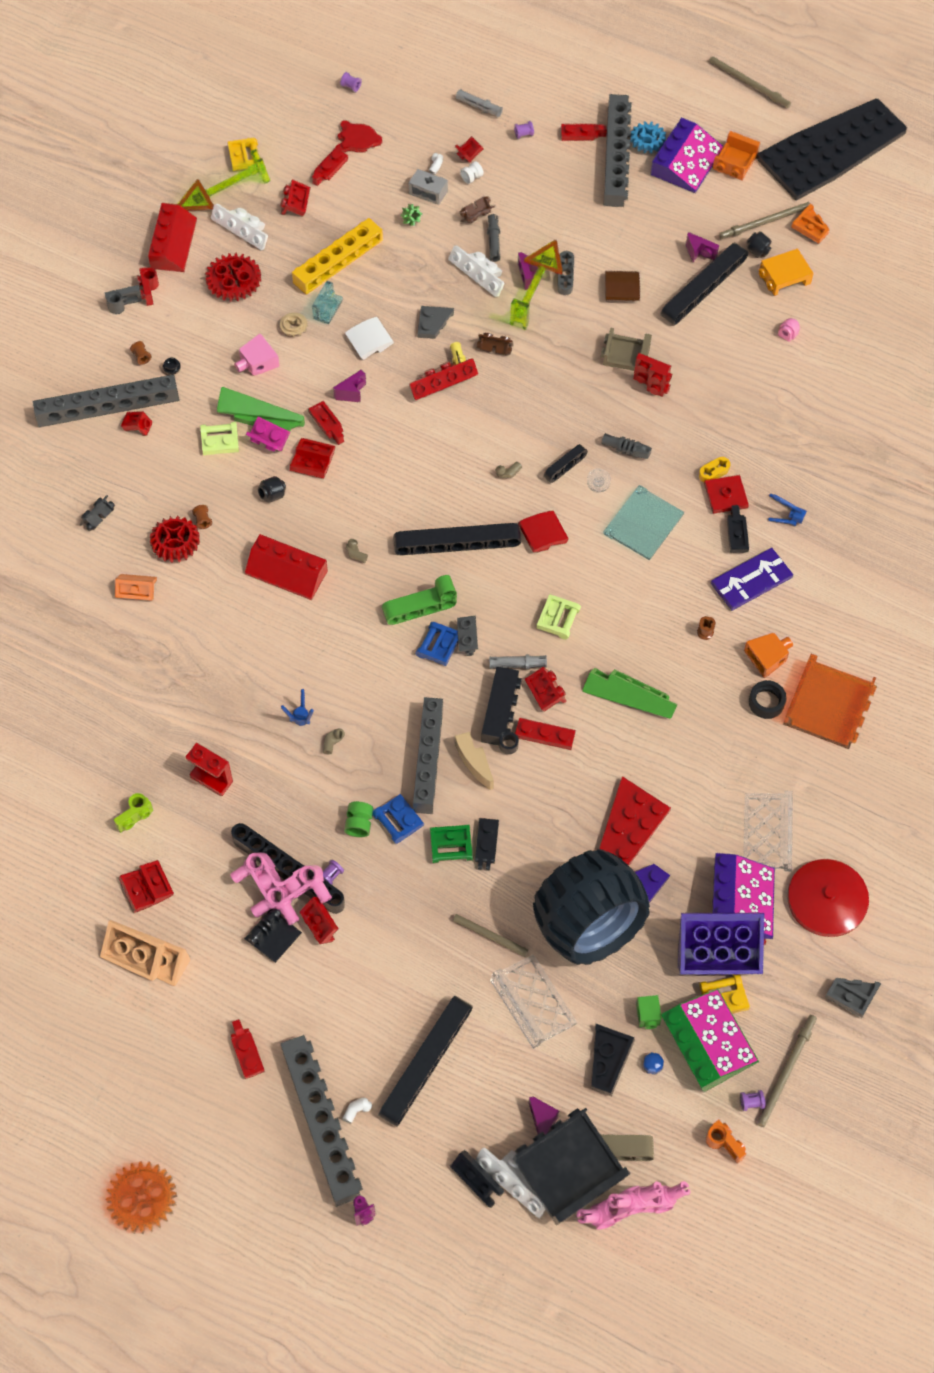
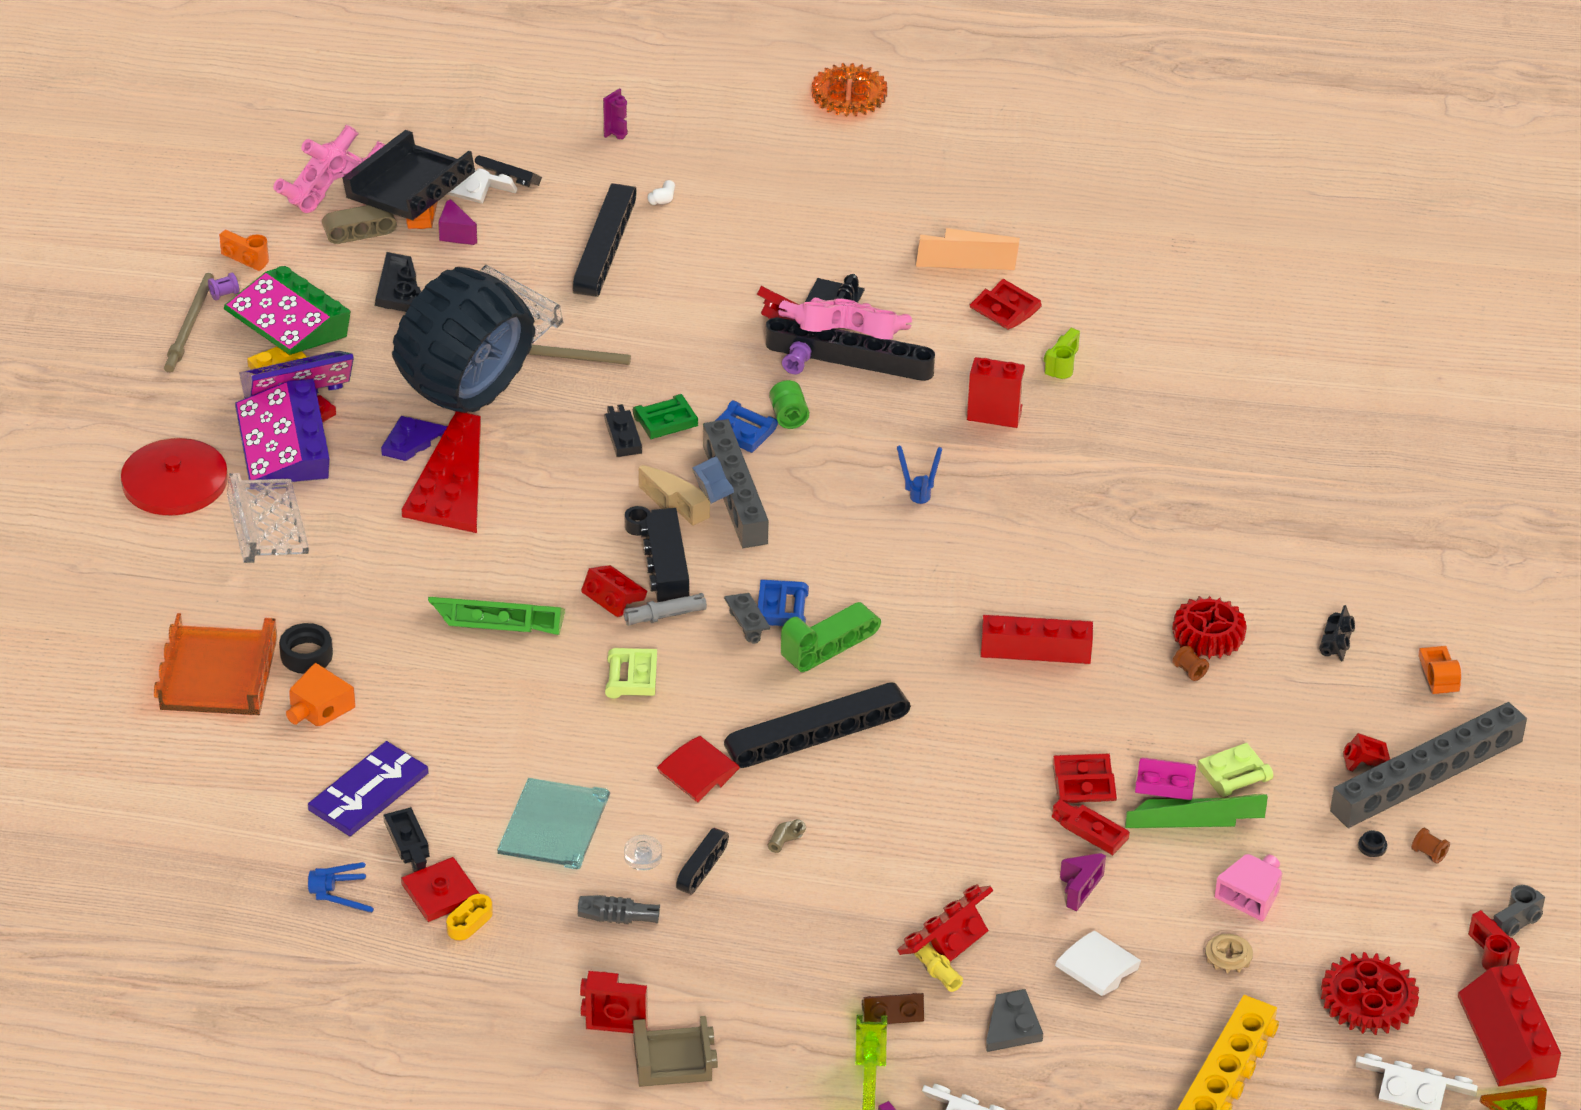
camera: 160 degrees right, 20 degrees down
(53, 466) = (1440, 670): none -> orange plate
(135, 587) = (1226, 571): orange panel -> none
(246, 1051) = (807, 210): red hinge -> none
(271, 489) = (1115, 716): black head -> none
(326, 304) = (1193, 987): clear light blue bracket -> none
(331, 739) = (867, 478): dark tan arm -> none
(341, 1192) = (698, 175): dark grey brick -> none
(354, 552) = (955, 679): dark tan arm -> none
(450, 736) = (712, 480): none -> sand blue panel
(545, 734) = (595, 549): red plate -> none
(648, 1011) = (366, 327): bright green brick -> none
(653, 1063) = (347, 294): blue tile -> none
(706, 628) = (416, 701): dark orange bush -> none
(852, 994) = (124, 394): dark grey wing -> none

